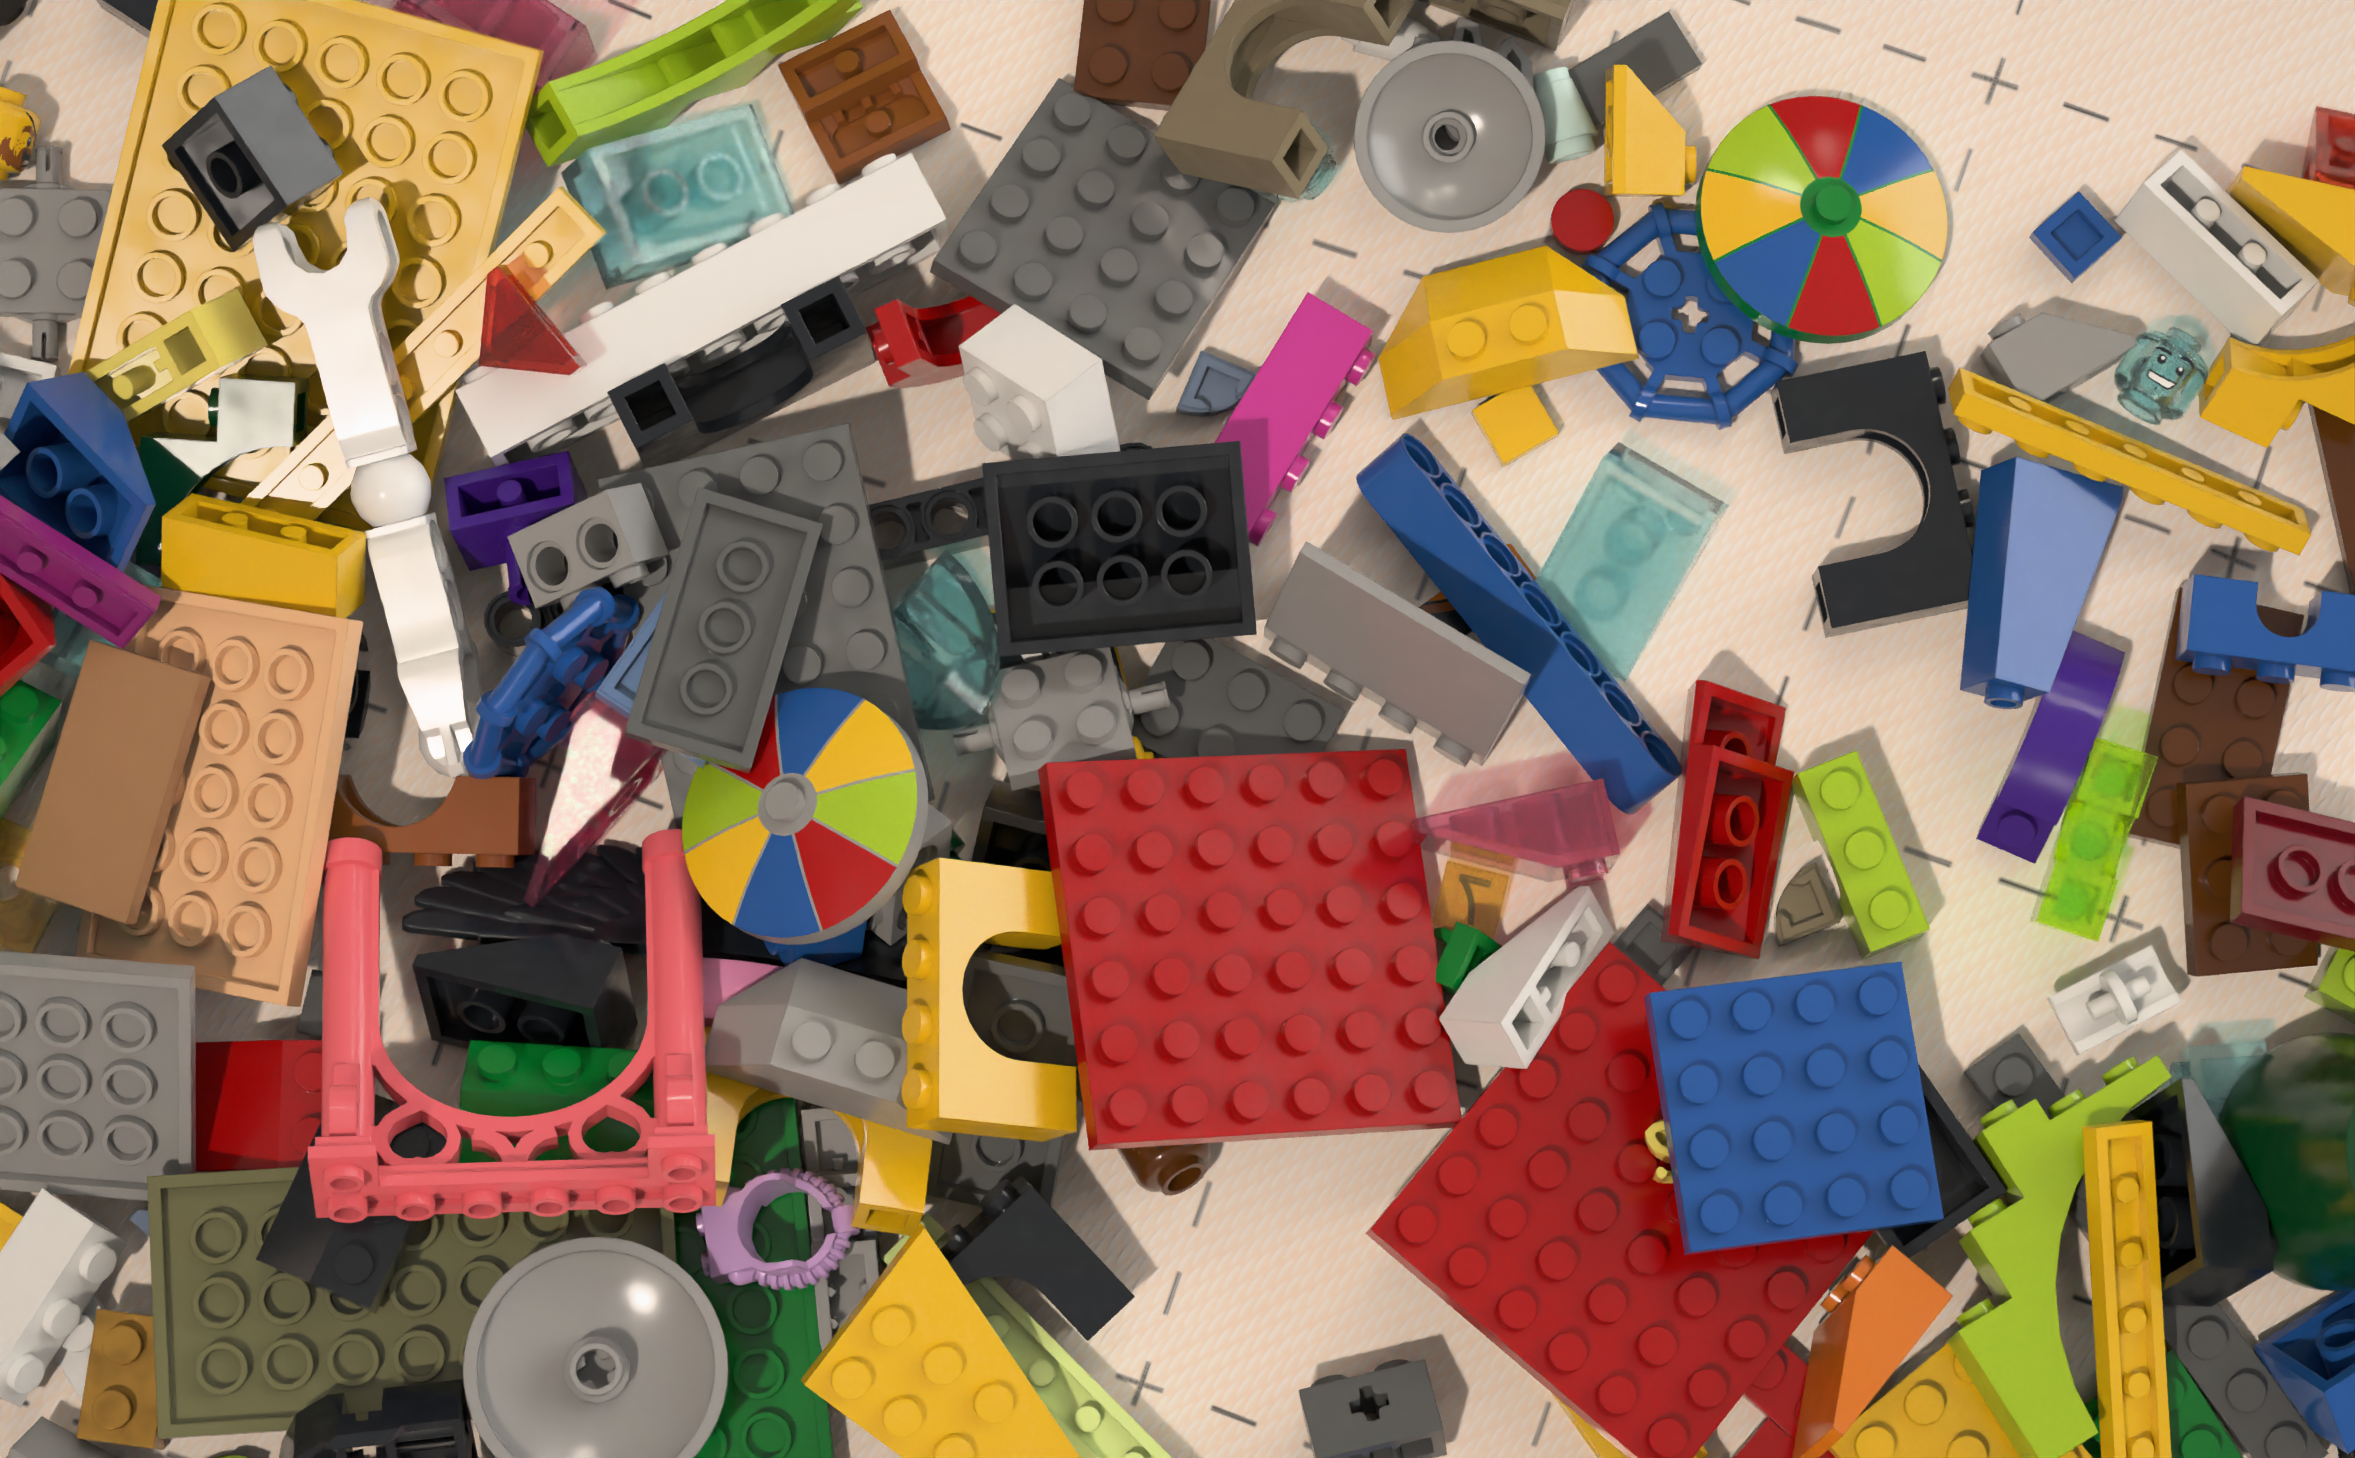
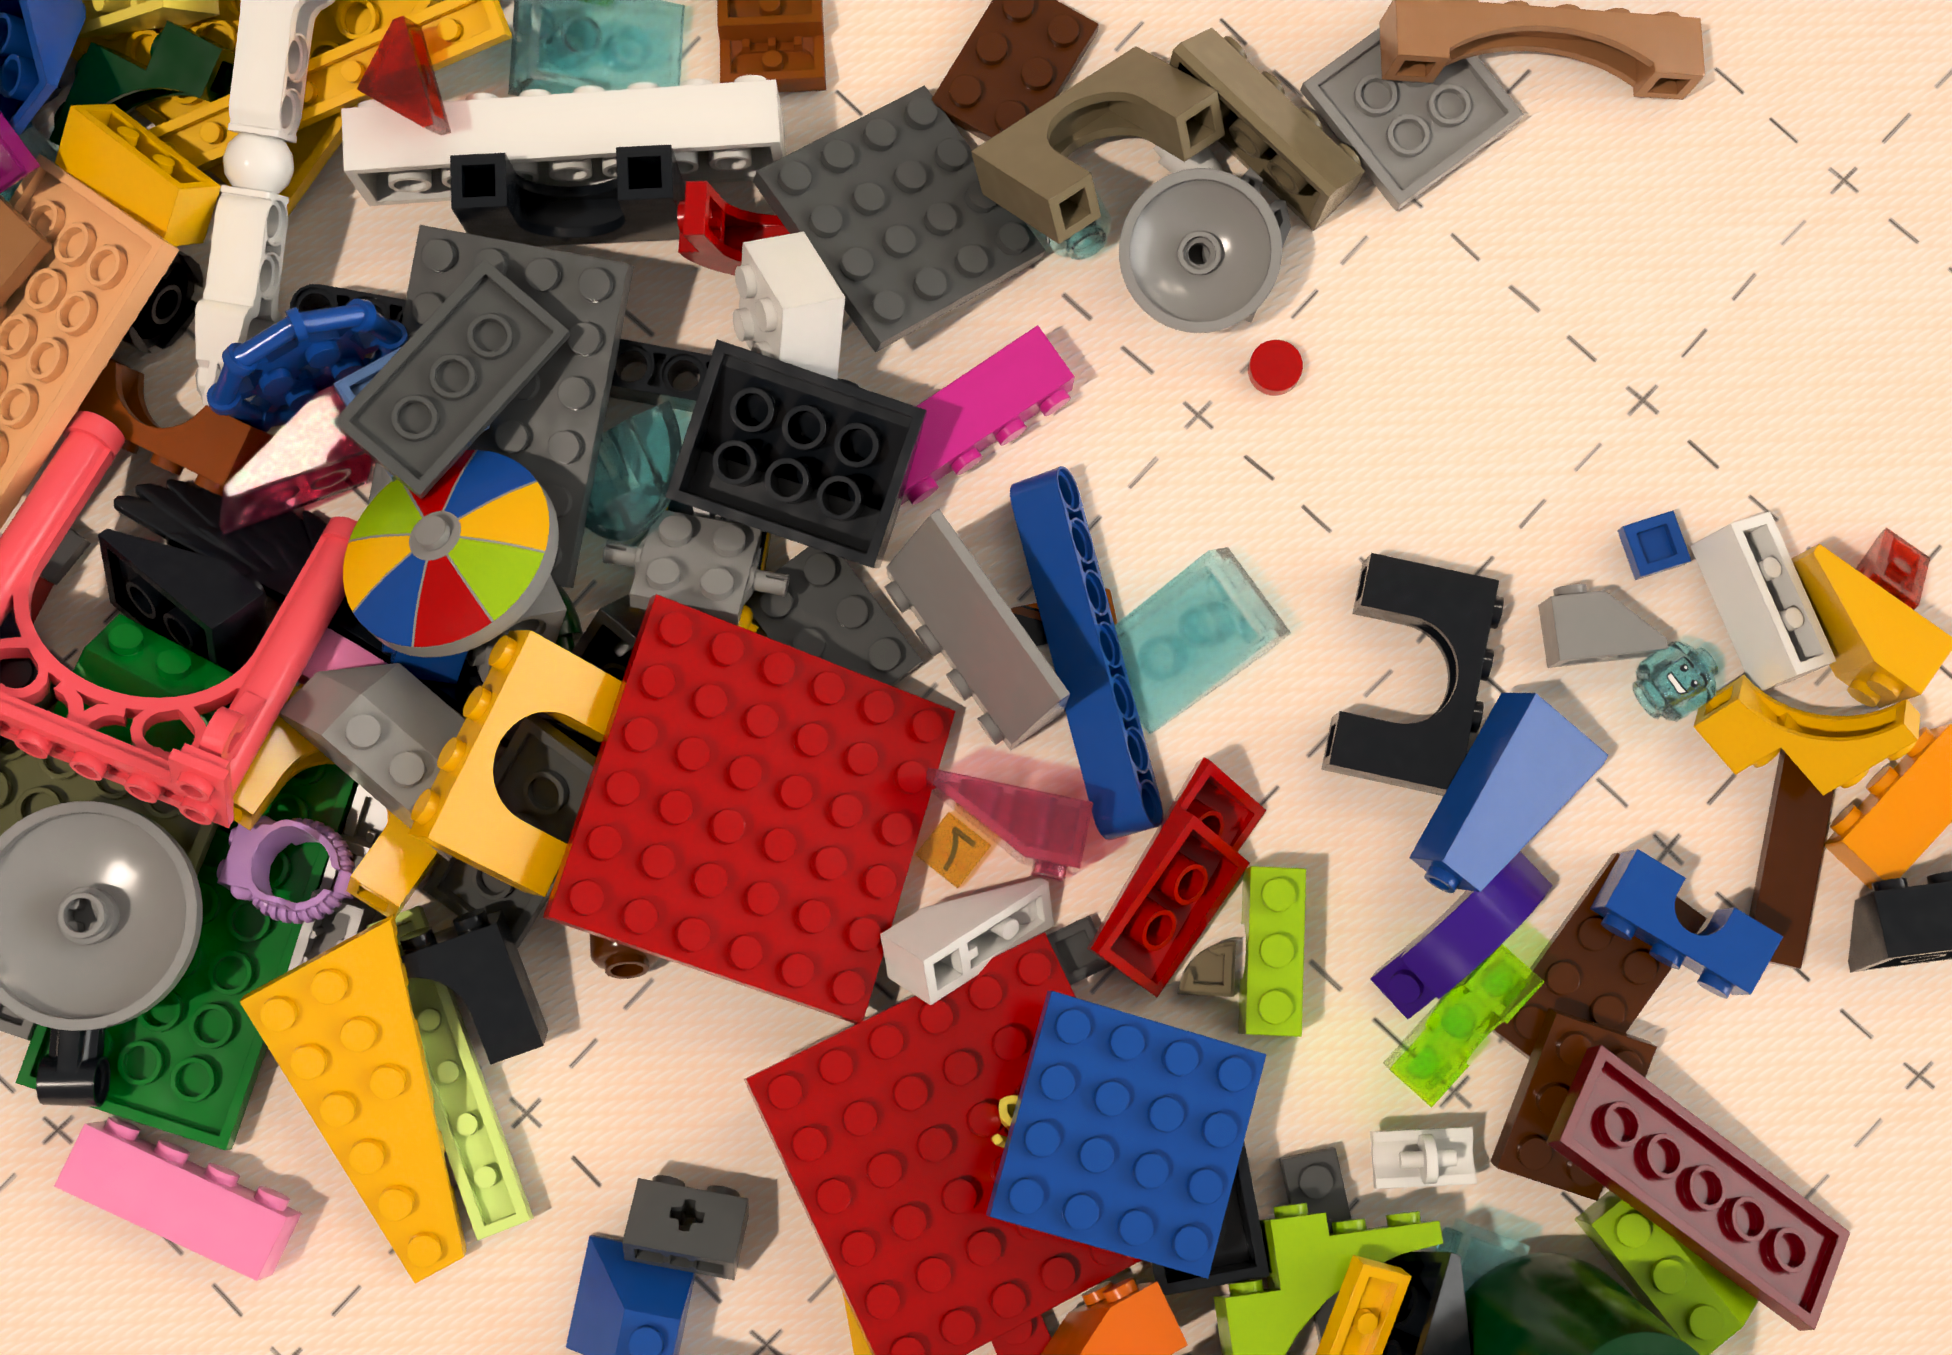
camera: 20 degrees right, 0 degrees up
(504, 500) = (355, 232): dark purple brick -> none
(587, 542) = (388, 267): light grey brick -> none
(1213, 387) = (933, 368): sand blue tile -> none
(1463, 952) = (925, 890): green tile -> none
(1501, 331) = (1176, 422): yellow wedge -> none
(1514, 424) = (1154, 498): yellow tile -> none
(1566, 119) = (1296, 283): light aqua cone -> none
(1642, 142) = (1350, 324): yellow slope -> none
(1655, 55) = (1364, 270): dark grey tile -> none
(1660, 339) = (1355, 465): blue plate -> none
(1821, 219) = (1461, 445): dish -> none
(2145, 469) = (1632, 749): yellow plate -> none

